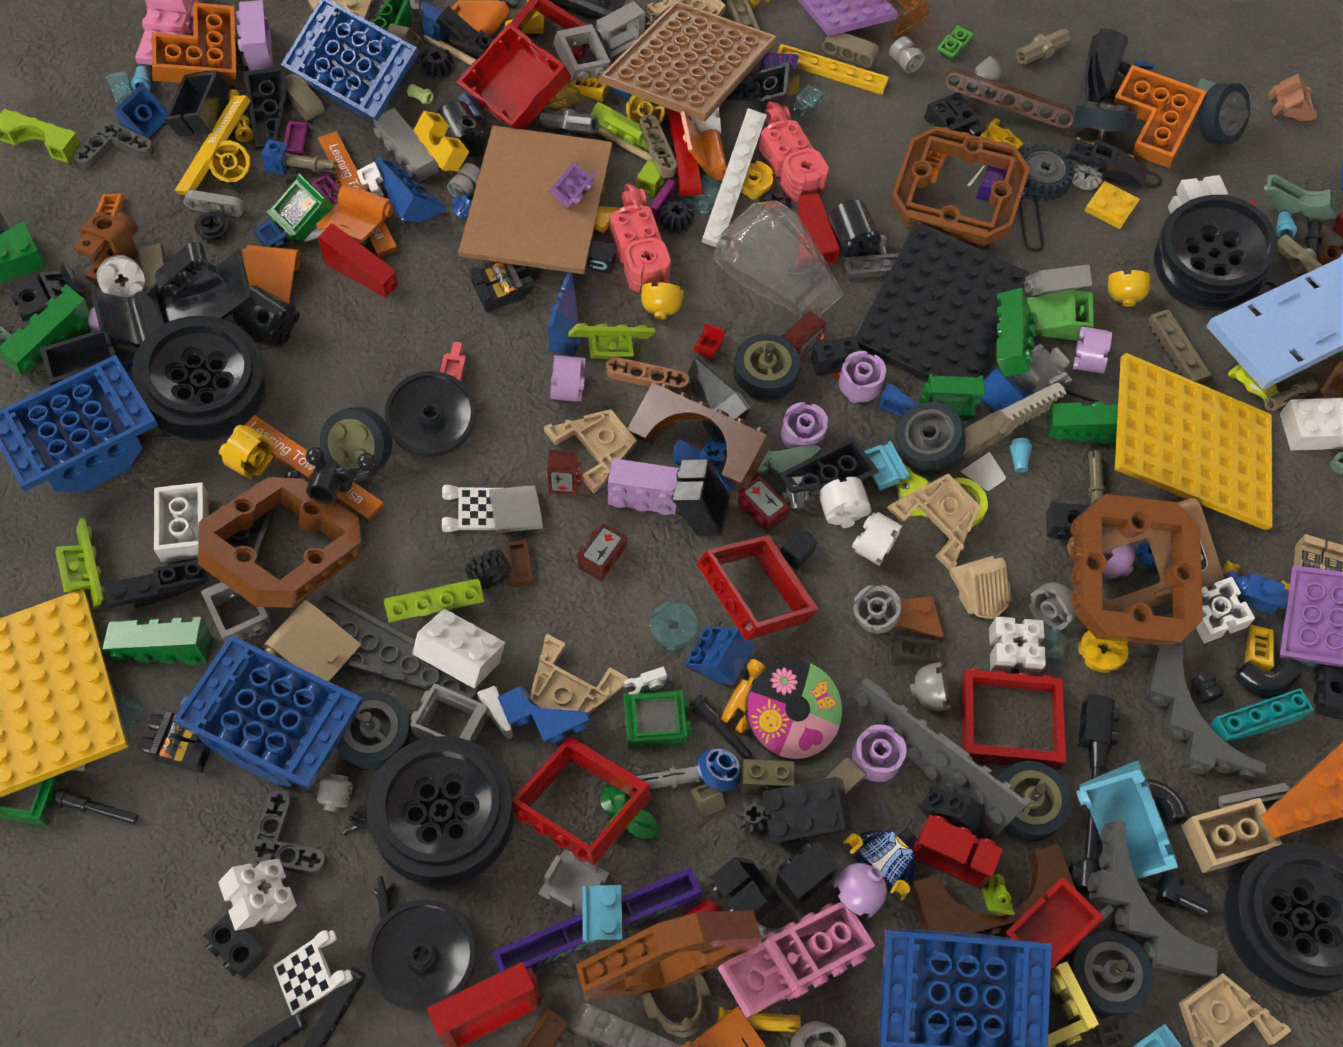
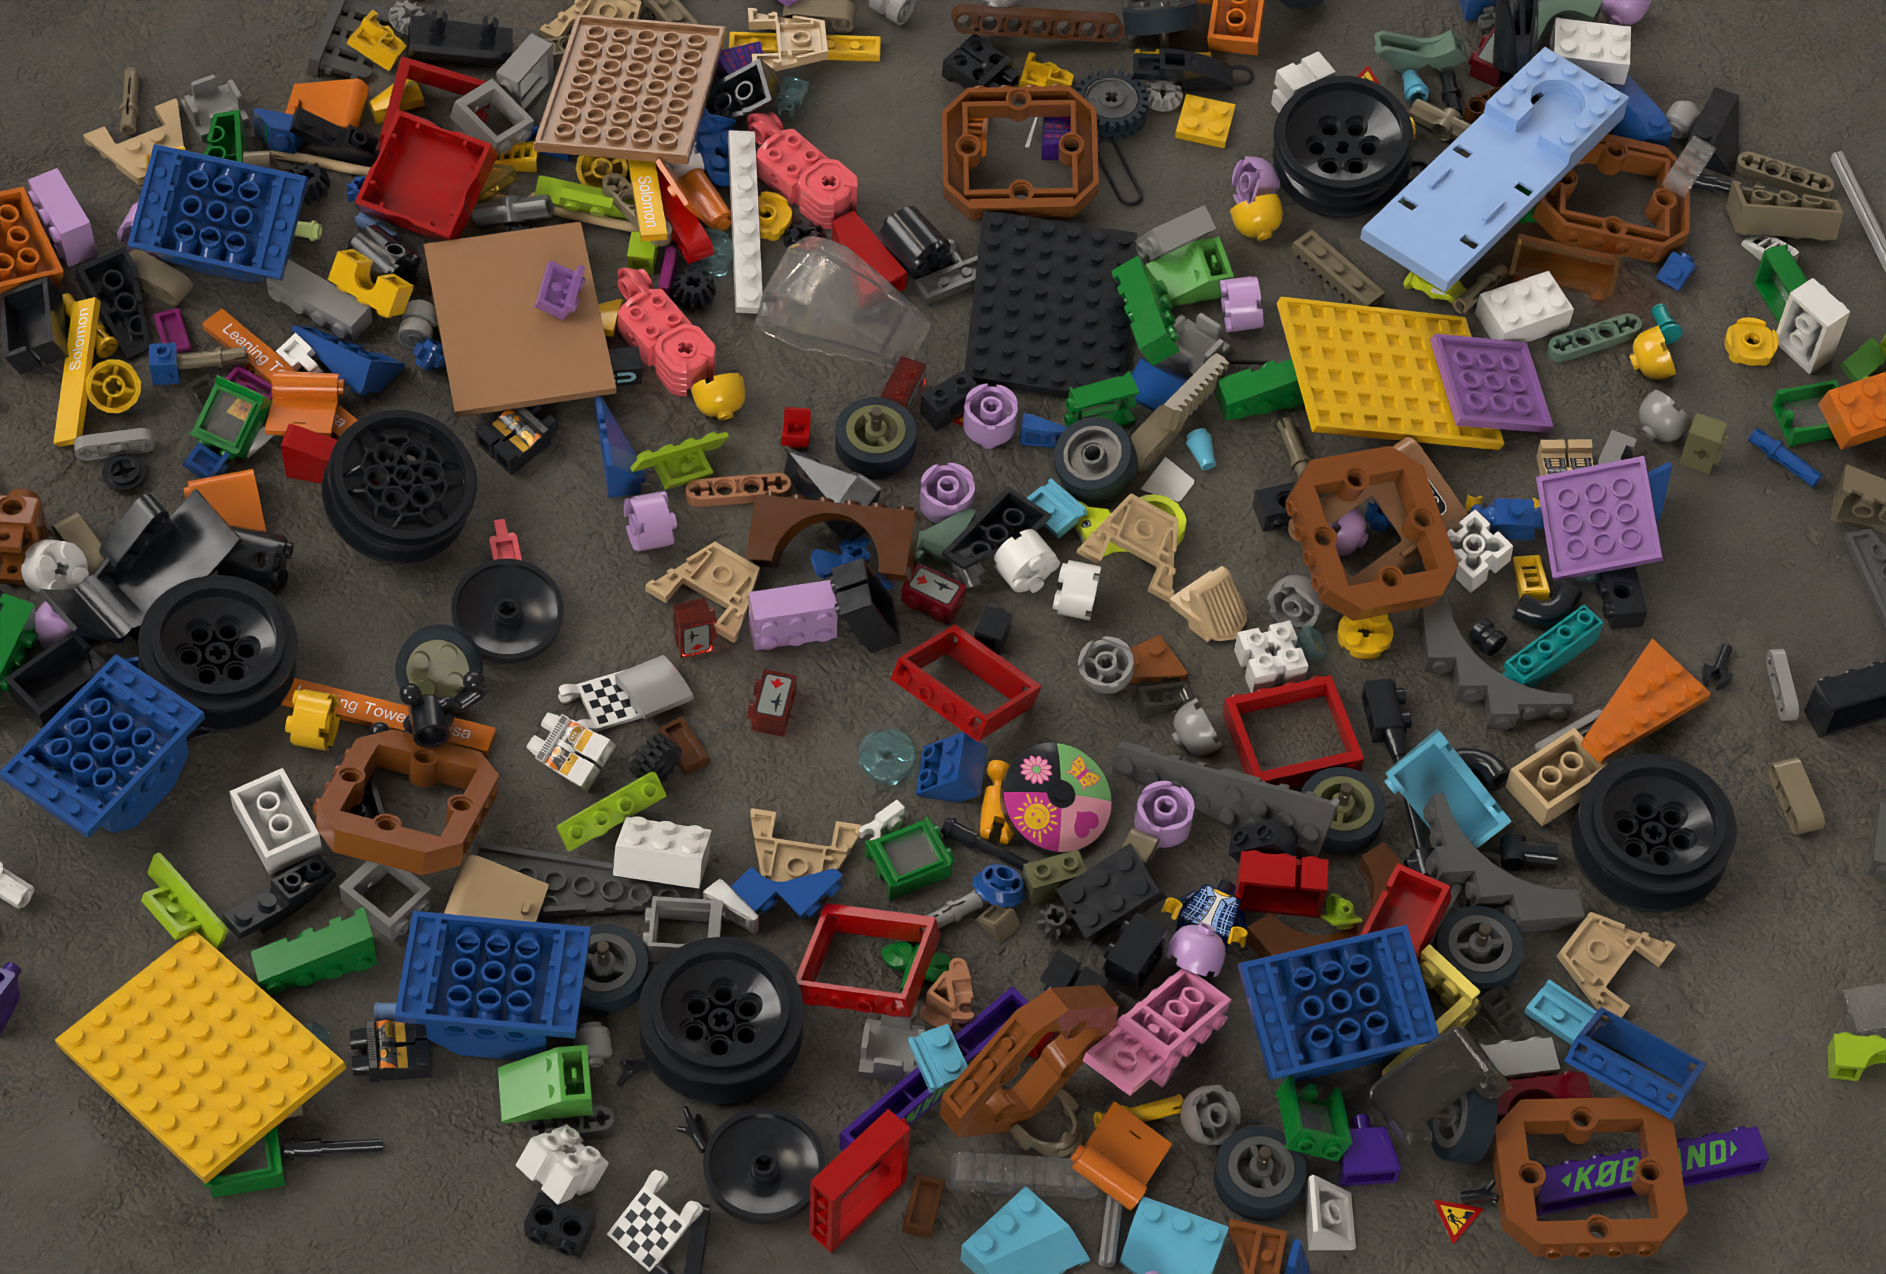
camera: 20 degrees left, 5 degrees down
(278, 819) = (546, 1086): none -> bright green slope
(380, 328) = (361, 509): none -> black wheel
(428, 540) = (564, 743): none -> white hips
(635, 860) = (950, 998): none -> nougat piece
(666, 140) = (647, 200): none -> yellow tile
(733, 112) = (713, 138): none -> blue plate
(825, 61) = (798, 39): none -> tan wing
(1135, 256) = (1254, 178): none -> lavender cylinder
(1277, 475) = (1491, 383): none -> medium lavender plate

